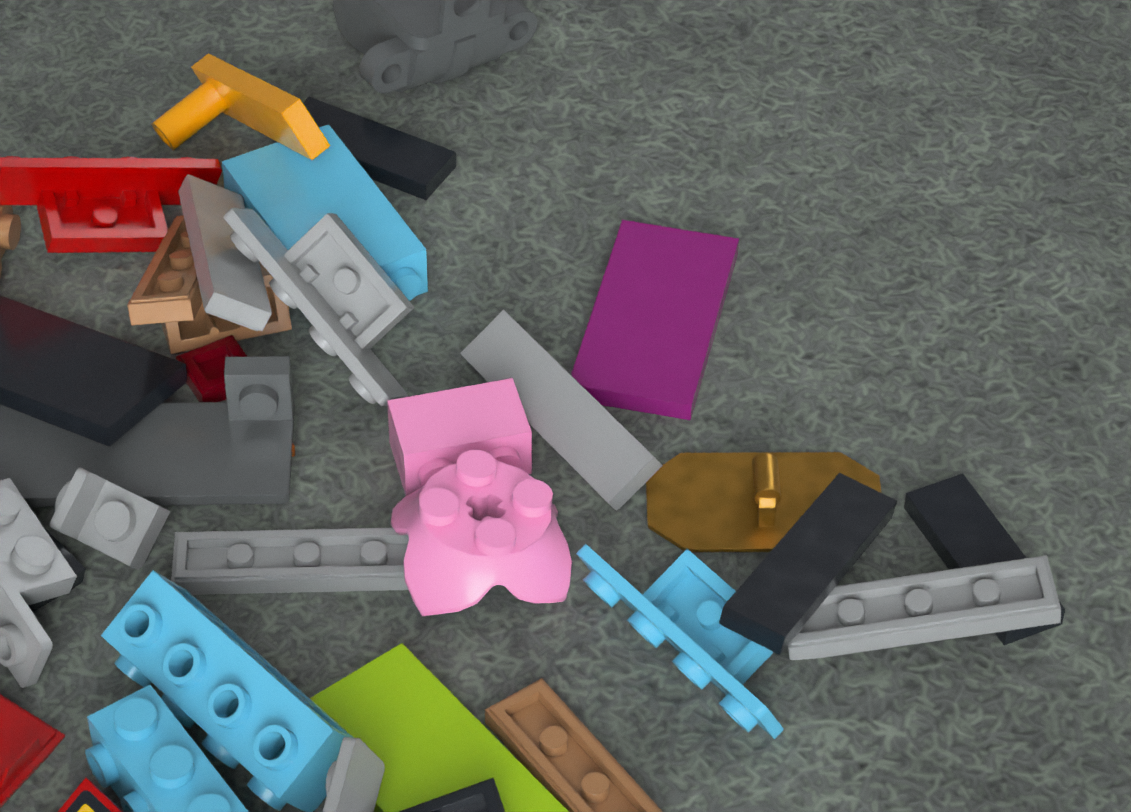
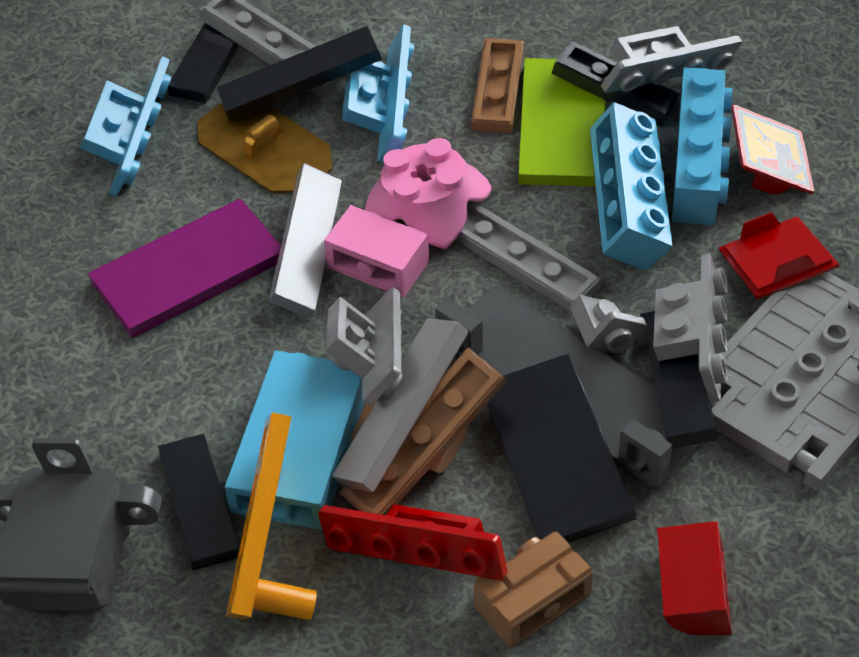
camera: 135 degrees left, 5 degrees up
(941, 388) = (119, 125): none -> medium azure bracket

